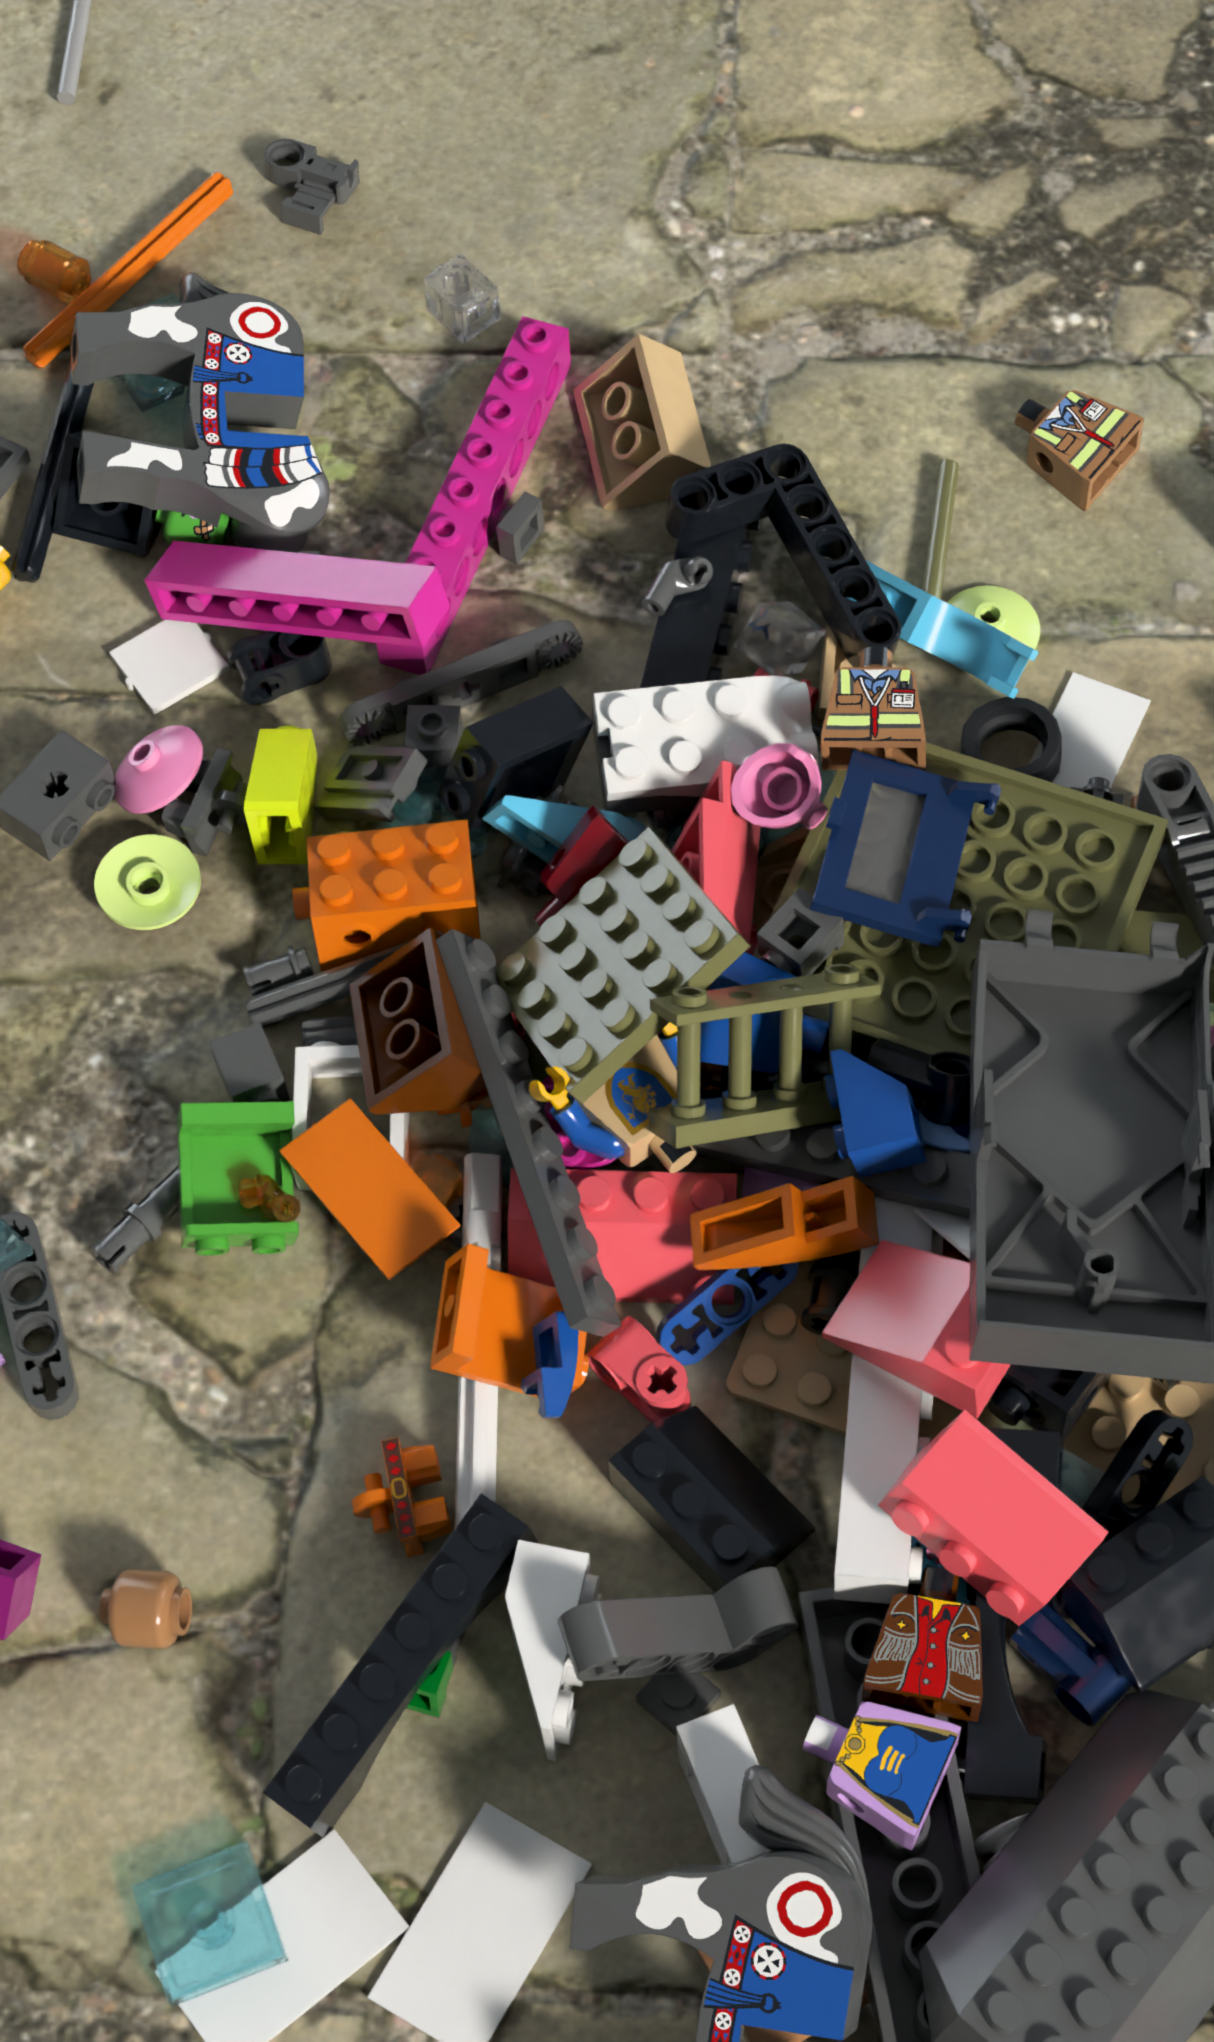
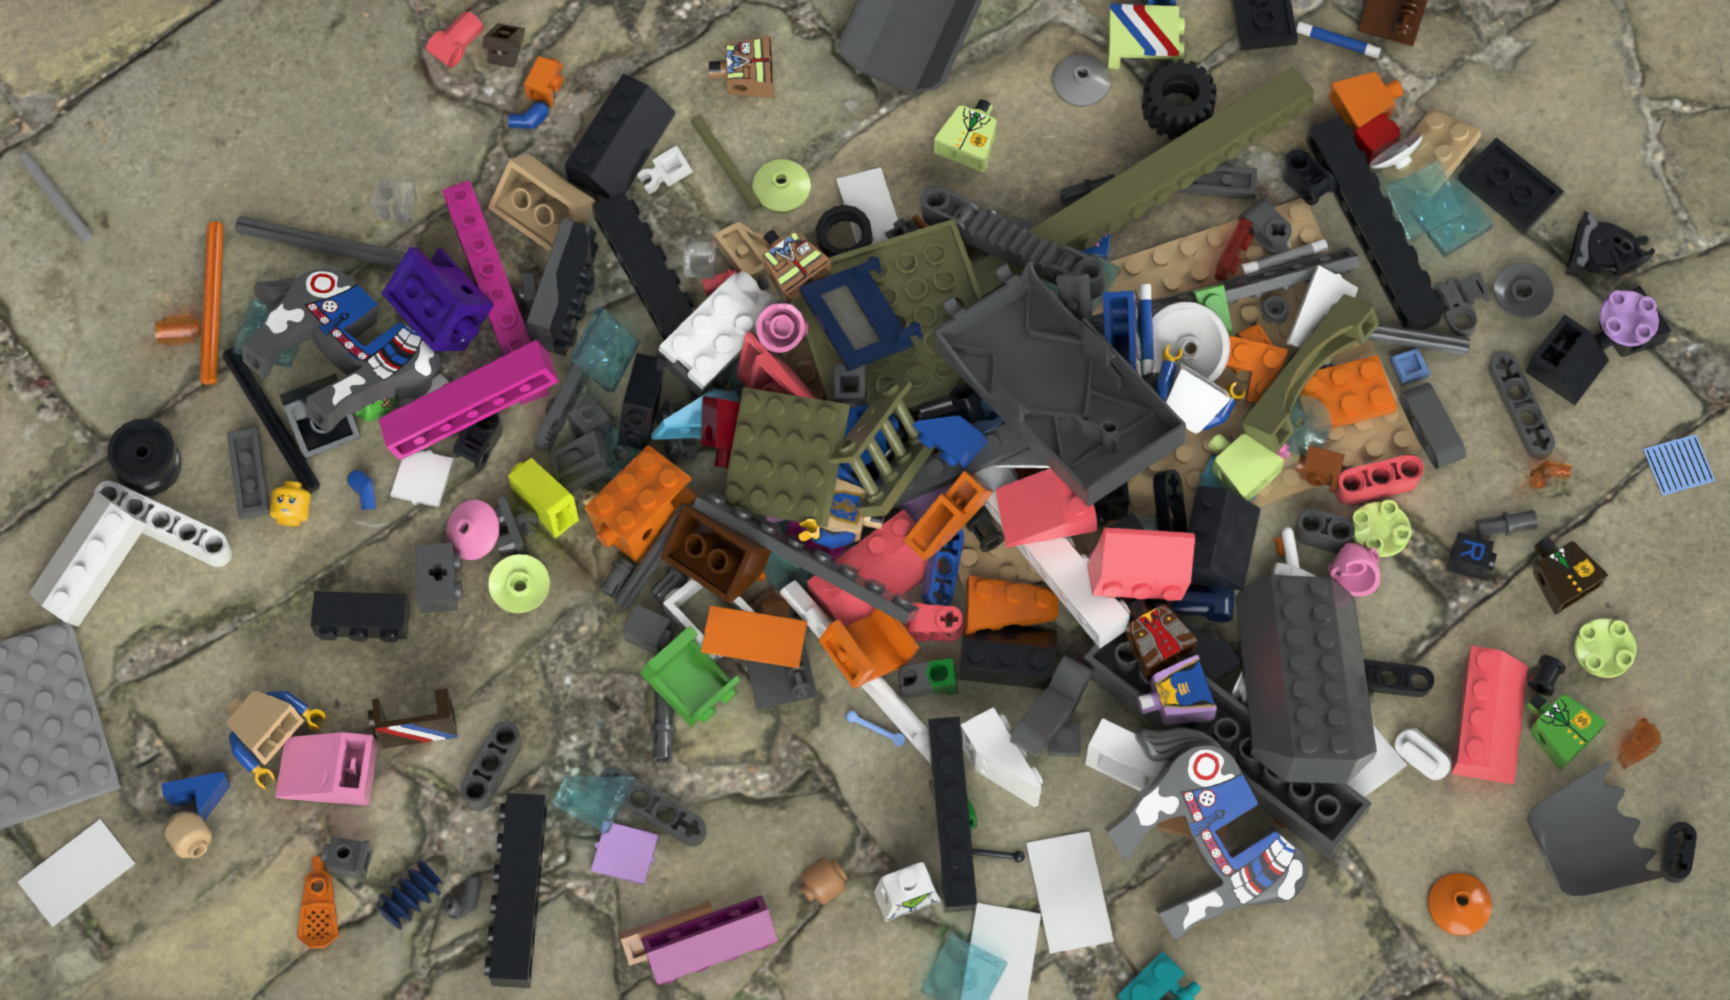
camera: 45 degrees left, 5 degrees up
(82, 612) = (362, 485): none -> blue arm
(242, 1723) = (906, 891): none -> white torso
(271, 1198) = (715, 675): clear orange arm -> none
(312, 179) = (265, 191): dark grey piece -> none
(328, 289) = (319, 242): none -> dark grey axle
(356, 1292) = (779, 684): none -> dark grey hinge
(379, 445) = (437, 300): none -> dark purple torso
(412, 1413) = (898, 739): none -> light blue hinge
(414, 1520) = (875, 740): orange hips -> none
(454, 1811) = (1018, 856): none -> black hinge
(539, 654) = (605, 350): none -> clear light blue plate
(555, 1362) = (900, 646): blue slope -> none
(559, 546) = (564, 288): none -> black piece
(564, 1447) = (928, 678): none -> leg
(675, 579) = (633, 266): dark grey arm -> none
(712, 160) = (450, 44): none -> coral piece
(732, 318) = (532, 118): none -> blue arm
(764, 1422) = (1005, 603): none -> orange wing
(781, 203) = (503, 44): none -> dark brown slope
(790, 280) = (544, 80): none -> orange brick
(806, 540) = (676, 206): black beam -> none
(833, 407) = (619, 138): none -> black slope
(859, 497) = (669, 168): none -> white plate
(955, 634) = (761, 202): medium azure piece -> none

